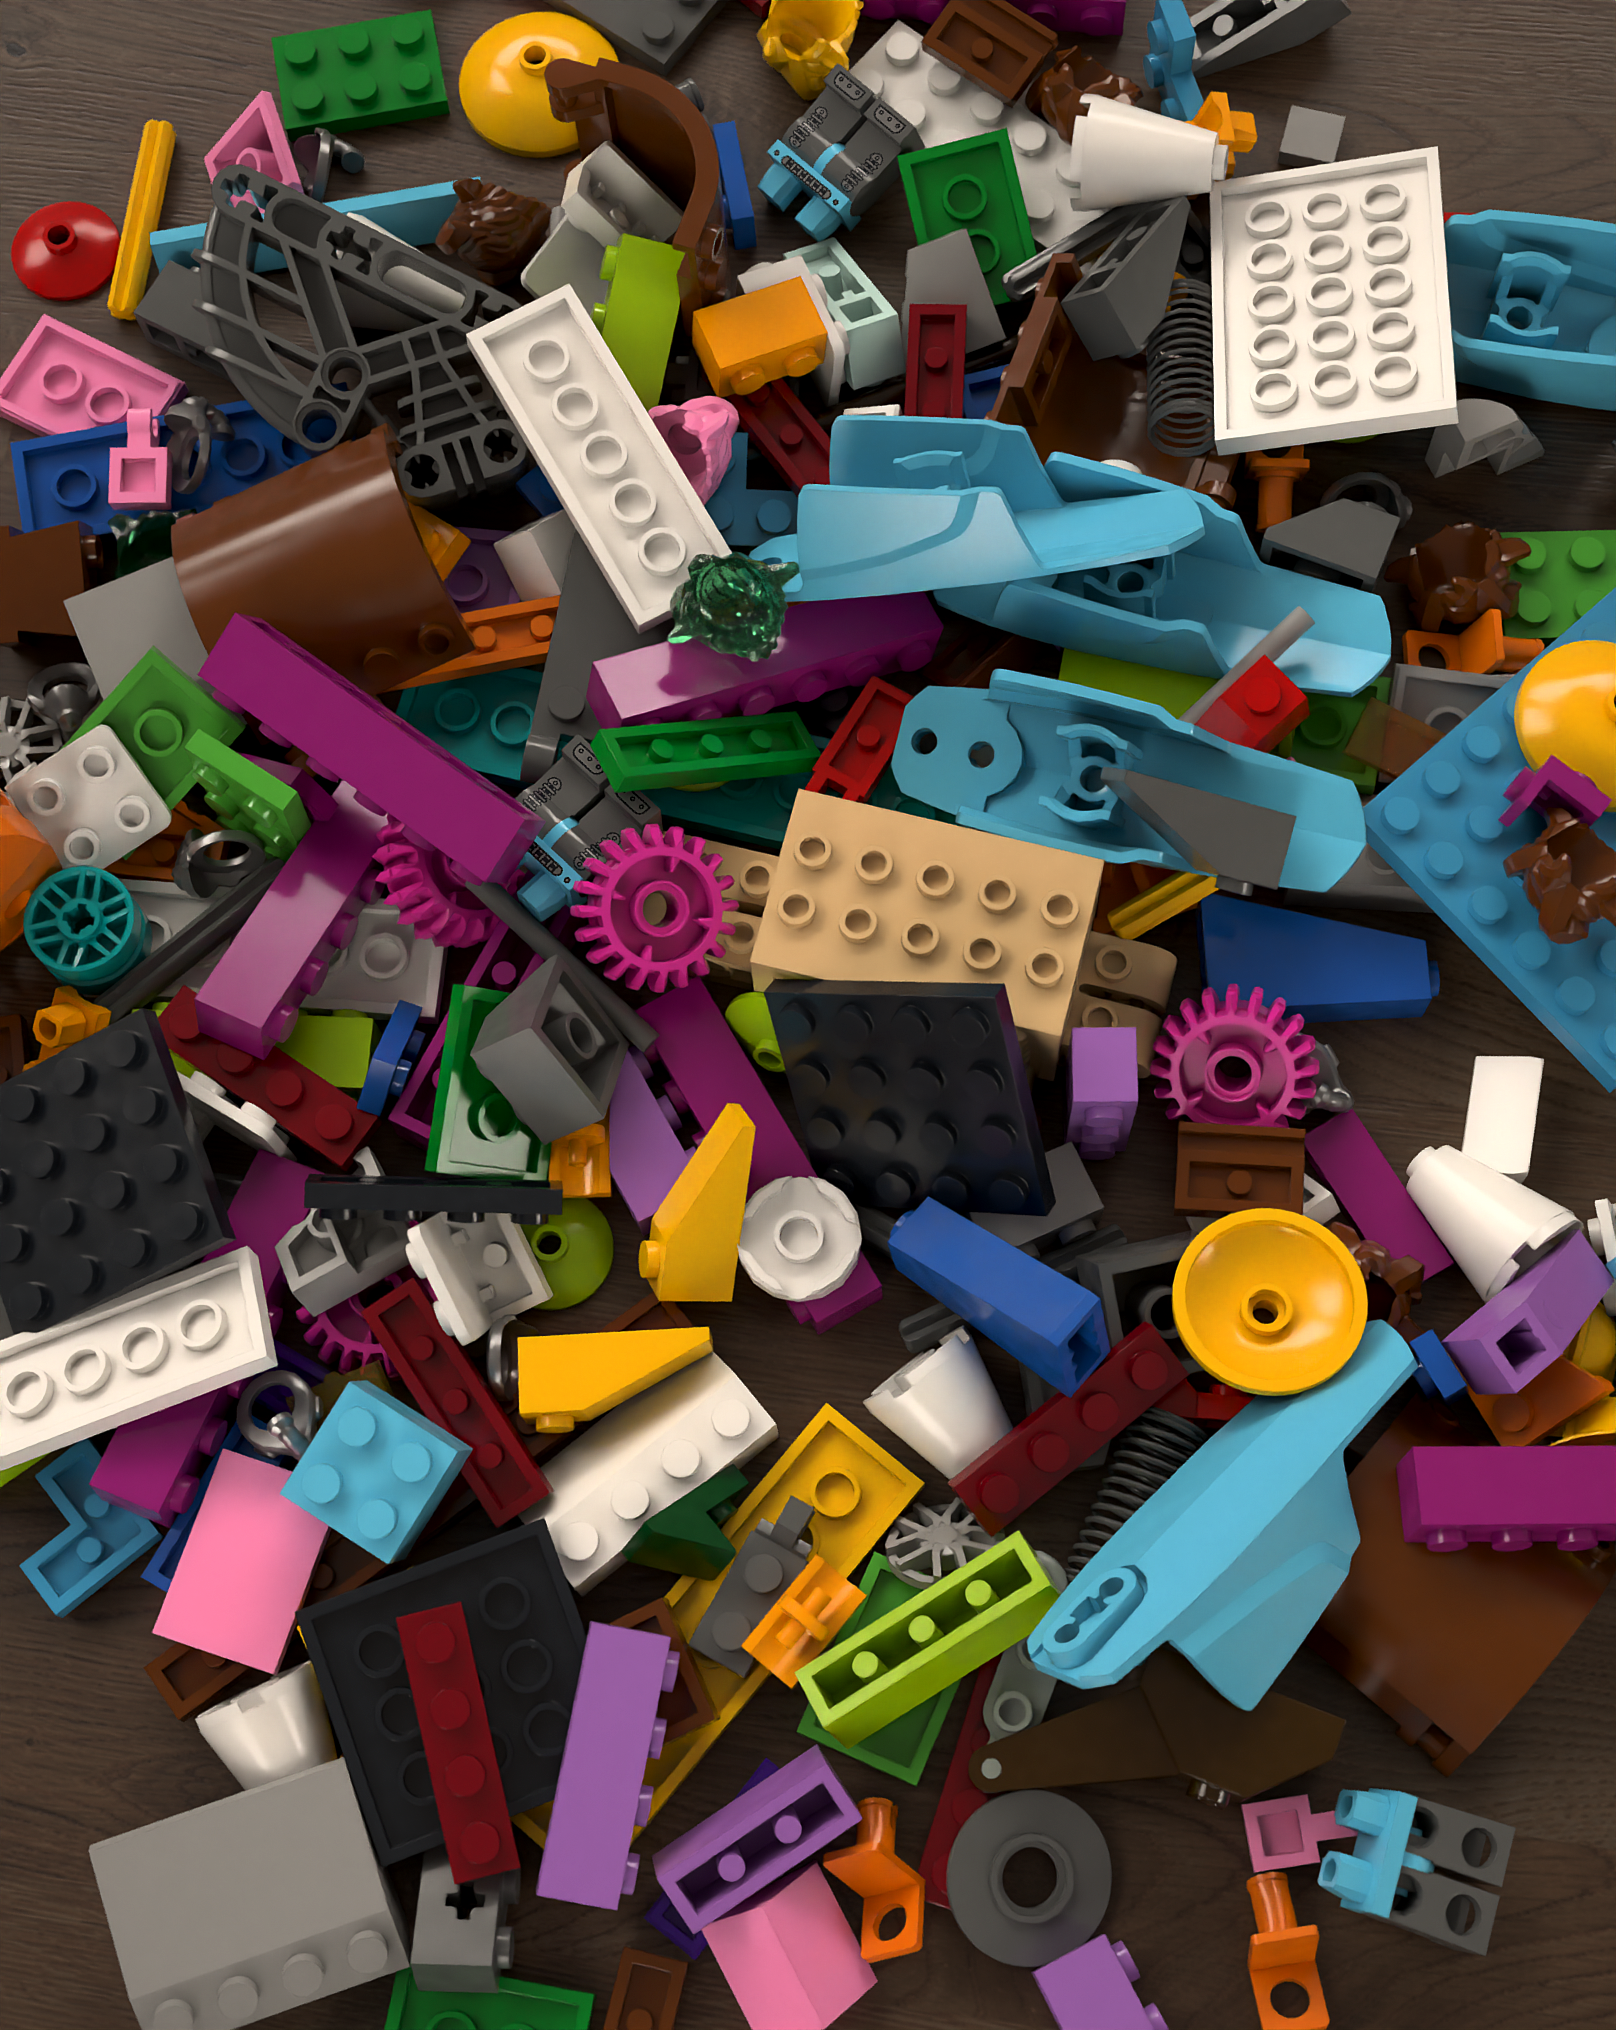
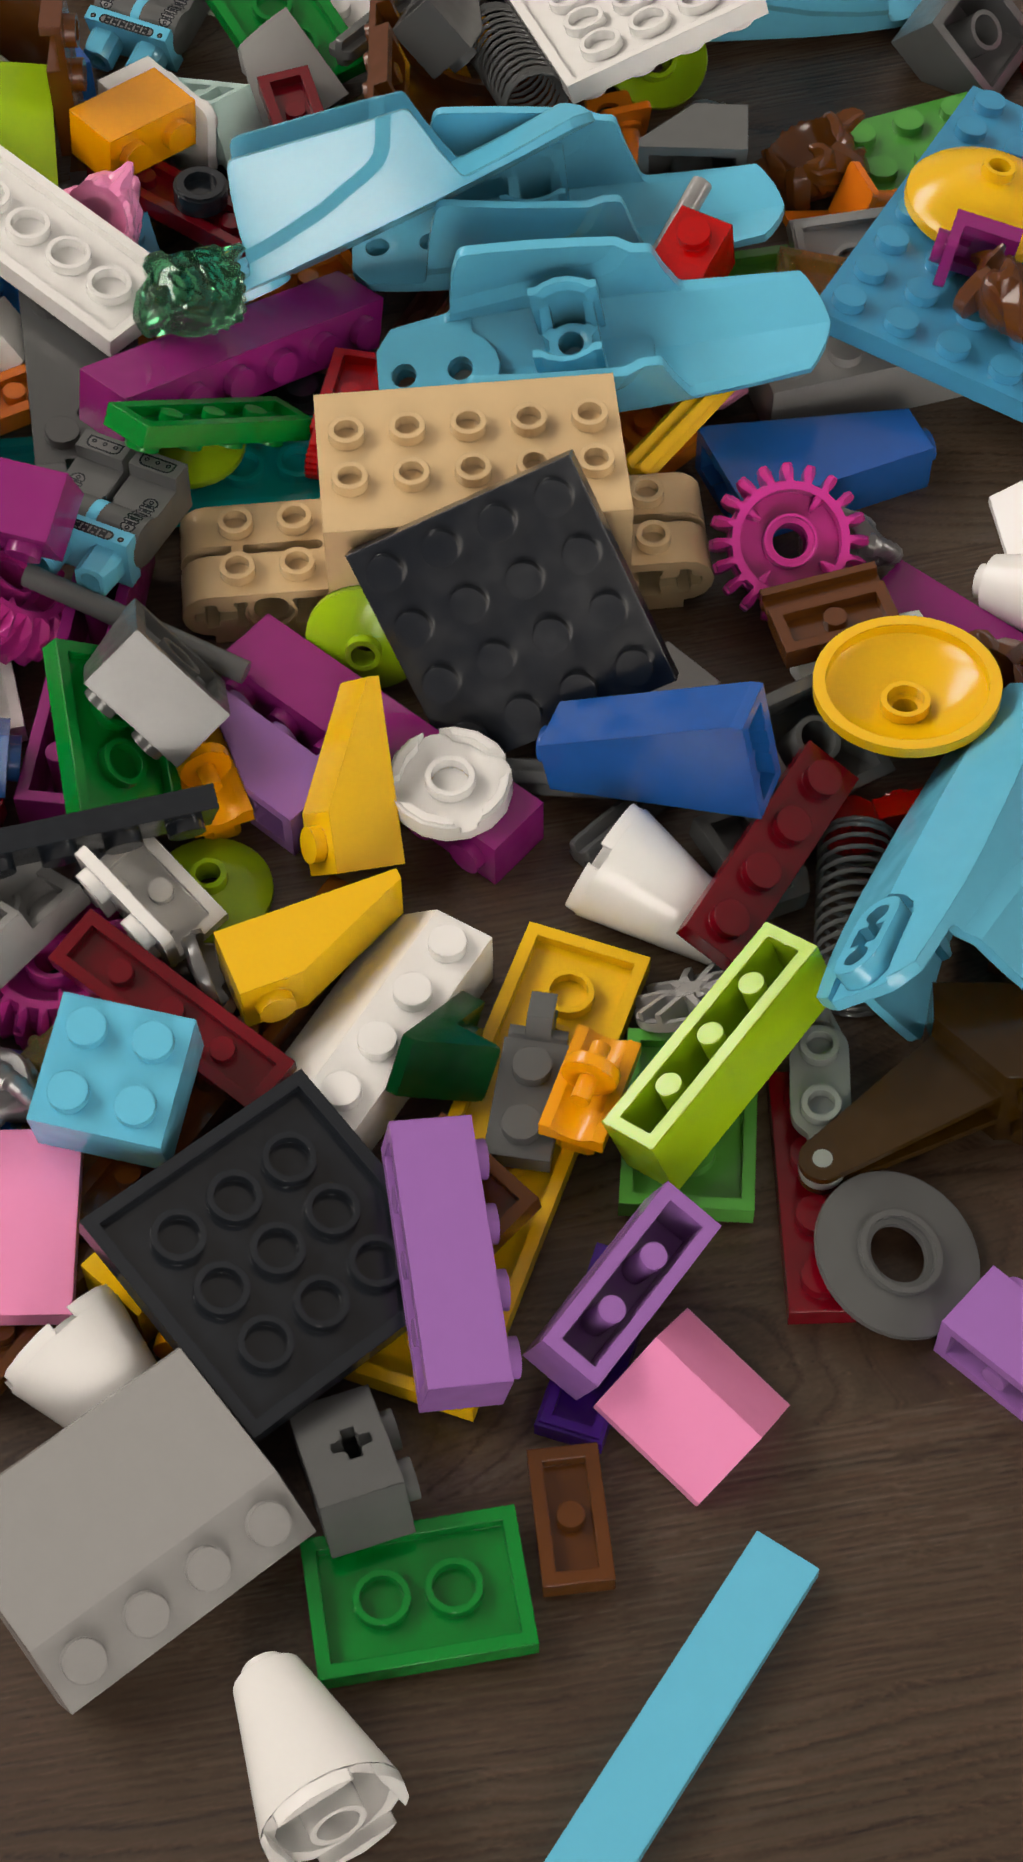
camera: 25 degrees left, 15 degrees down
(458, 1742) = (291, 1292): dark red plate -> none
(617, 908) = (189, 566): dark pink gear -> none
(803, 435) = (200, 192): none -> black tile
(881, 1880) = (756, 1303): orange bracket -> none
(1100, 1090) = (681, 572): medium lavender brick -> none
(1210, 831) = (697, 332): dark grey slope -> none
(1482, 432) = (783, 56): light grey slope -> none

